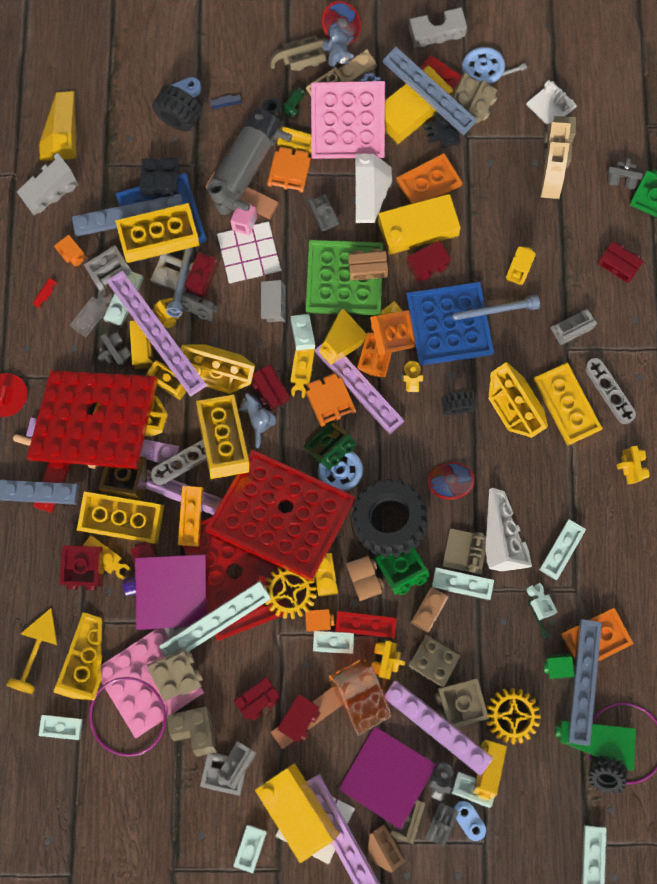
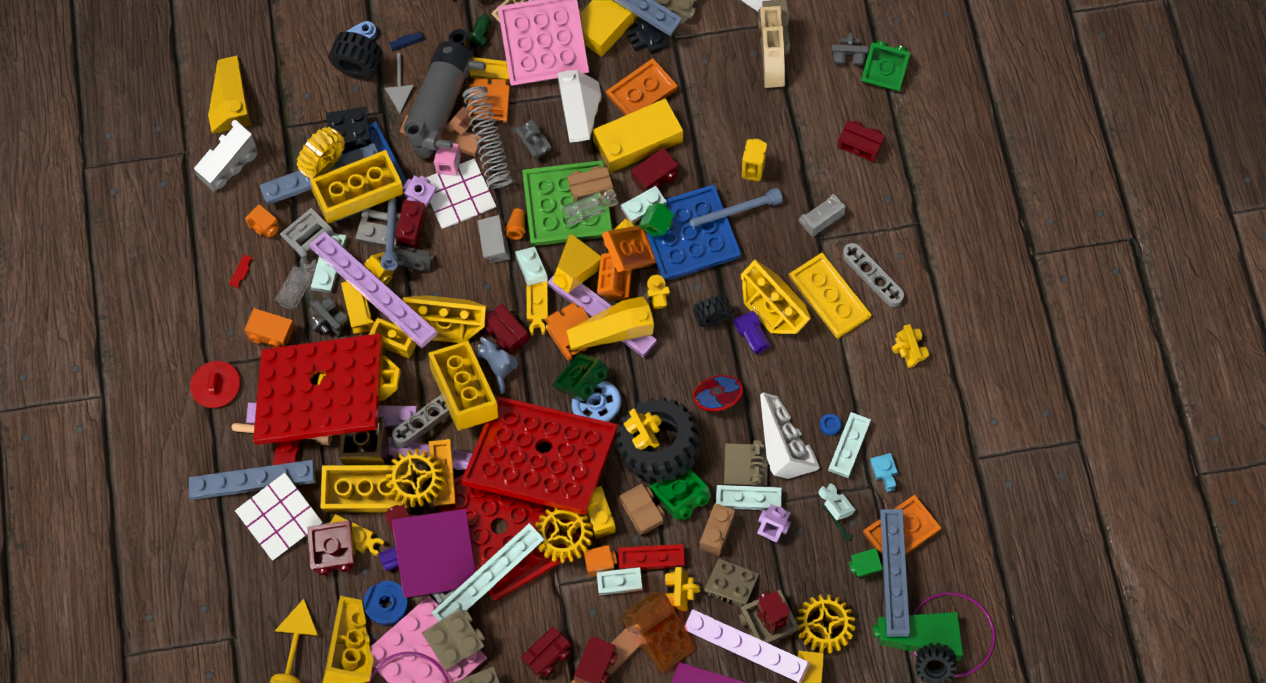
camera: 10 degrees left, 10 degrees down
(39, 529) = (278, 516): none -> white piece
(60, 352) = (269, 329): none -> orange hinge
(111, 629) = (390, 614): none -> blue plate
(128, 197) = (320, 152): none -> yellow gear
(164, 528) = (405, 480): none -> yellow gear
(212, 150) = (401, 93): none -> light grey piece
(217, 251) = (419, 183): none -> lavender brick
(260, 185) = (459, 121): none -> nougat tile
(286, 248) = (496, 178): none -> light grey piece
(295, 291) = (516, 225): none -> orange cone
(363, 286) = (588, 207): none -> clear plate
(372, 399) = (617, 323): none -> yellow wedge
(381, 509) = (647, 426): none -> yellow hips
(413, 291) = (636, 207): none -> light aqua plate
(422, 308) = (656, 219): none -> green brick
(467, 704) = (772, 611): none -> dark red brick
(481, 613) = (773, 522): none -> lavender brick
(490, 422) = (750, 327): none -> dark purple piece
(547, 526) = (830, 424): none -> blue tile
(590, 576) = (884, 469): none -> medium azure plate

